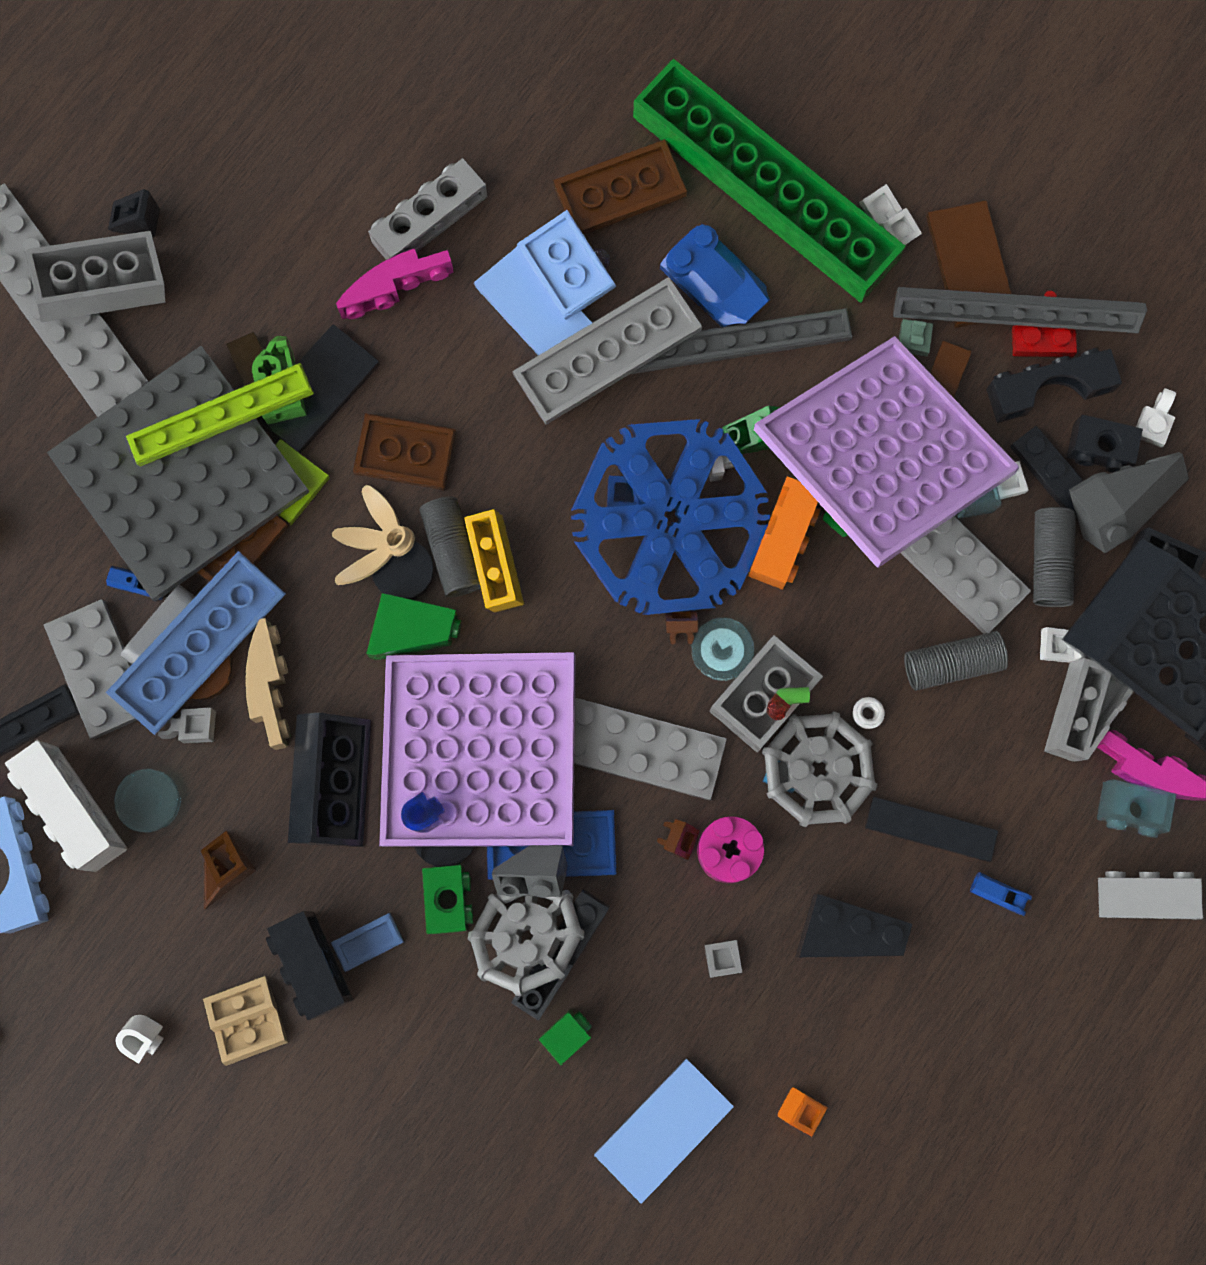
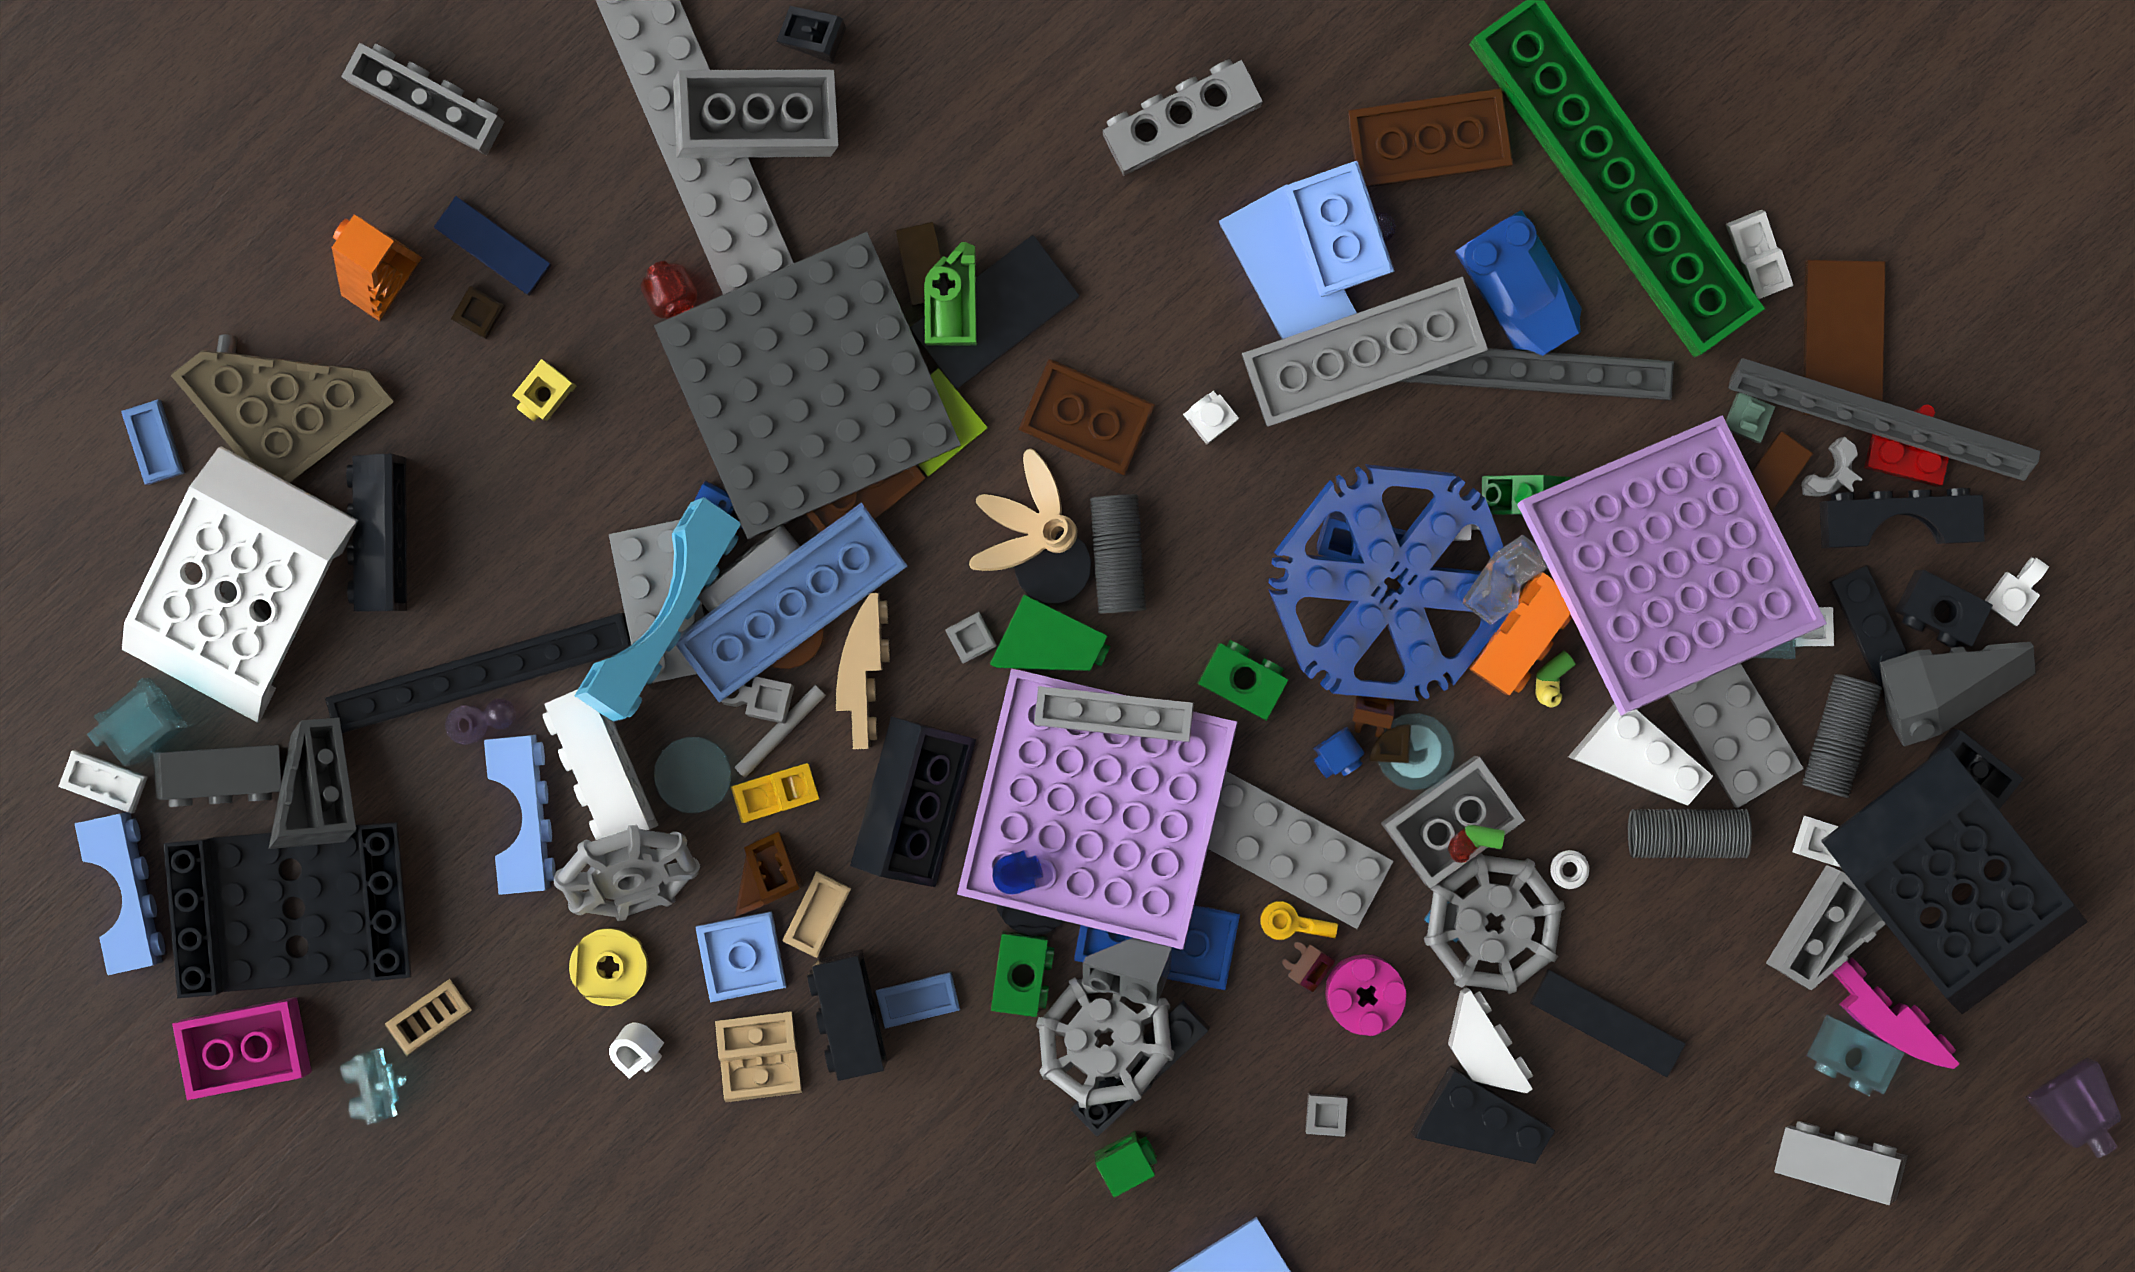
camera: 20 degrees right, 10 degrees up
(55, 424) = (668, 289): none -> clear red head
(59, 726) = (698, 545): none -> medium azure arch
(92, 961) = (624, 982): none -> light yellow plate
(111, 907) = (628, 874): none -> light grey plate
(211, 750) = (780, 731): none -> light grey bar
(215, 940) = (741, 956): none -> light blue tile
(216, 800) = (774, 793): none -> yellow slope
(219, 415) = (875, 331): lime tile -> none
(270, 891) = (816, 914): none -> tan tile
(349, 640) = (971, 637): none -> light grey tile
(379, 285) = (1102, 199): dark pink slope -> none
(473, 668) = (1114, 714): none -> light grey plate
(494, 561) = (1166, 585): yellow brick -> none
(501, 427) = (1210, 416): none -> white brick
(585, 636) = (1260, 696): none -> green brick
(648, 807) = (1281, 921): none -> yellow plate
(662, 663) = (1338, 754): none -> blue plate
(703, 646) = (1392, 745): none -> dark brown tile
(756, 494) = (1499, 584): none -> clear slope
(813, 567) = (1548, 679): none -> arm
(837, 871) = (1484, 1047): none -> white slope
(902, 608) = (1641, 755): none -> white wedge
(984, 373) = (1842, 474): none -> light grey piece
(997, 891) = (1665, 1113): blue bar -> none

